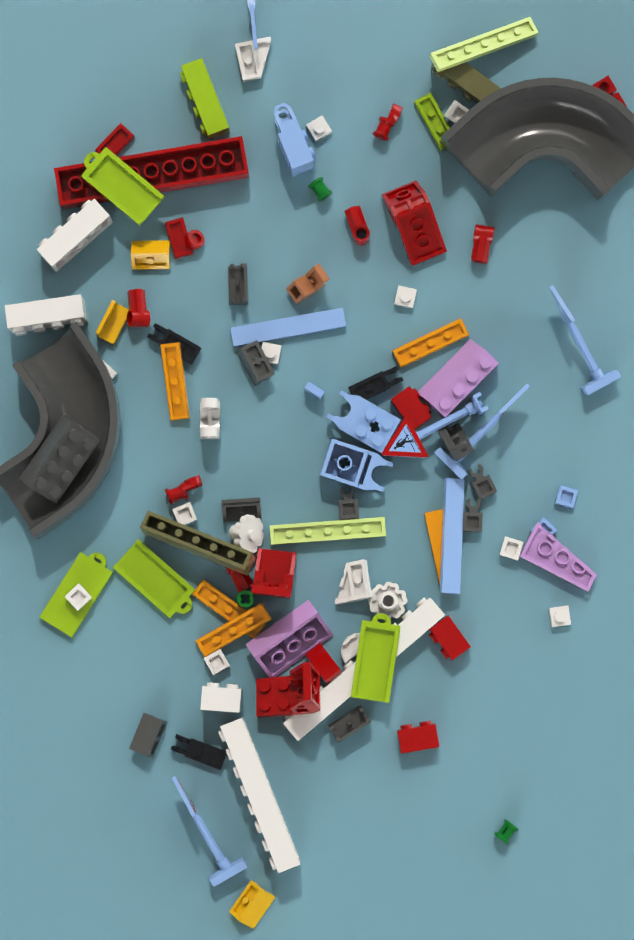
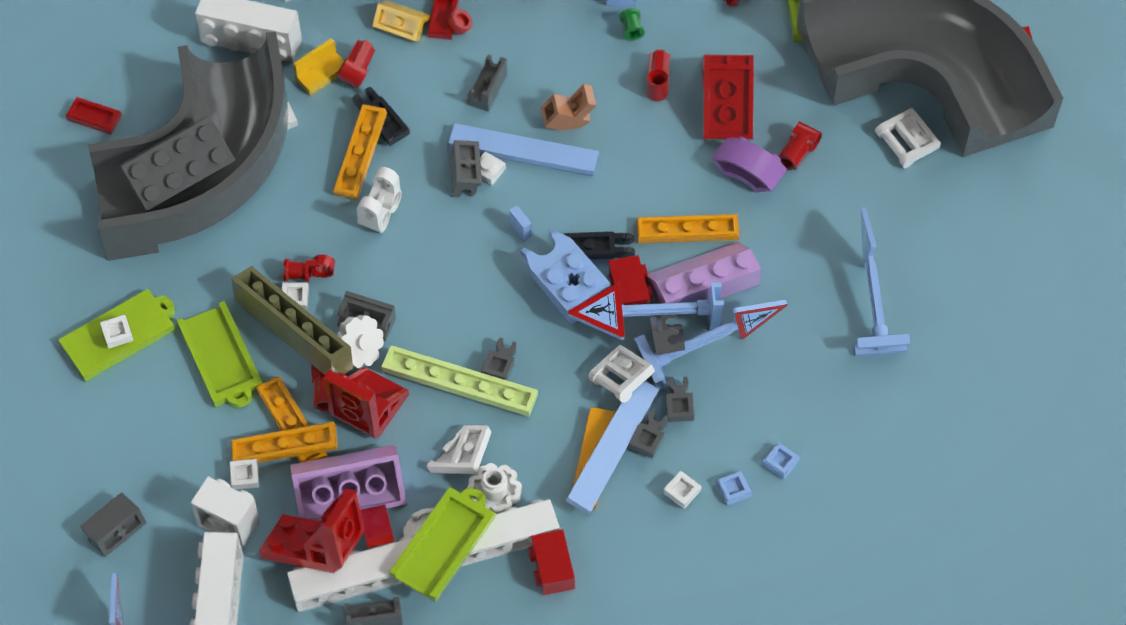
camera: 25 degrees right, 25 degrees down
(201, 752) = (167, 573): black hinge -> none
(251, 598) = (322, 410): green bush -> none
(359, 468) = (532, 323): light blue brick -> none
(405, 297) = (680, 169): white plate -> none
(438, 475) = (627, 367): none -> white plate
(453, 275) = (749, 164): none -> medium lavender brick
(549, 554) = (730, 519): lavender wing -> none
(559, 199) = (914, 133): none -> white plate
(559, 616) = (709, 596): white plate -> none

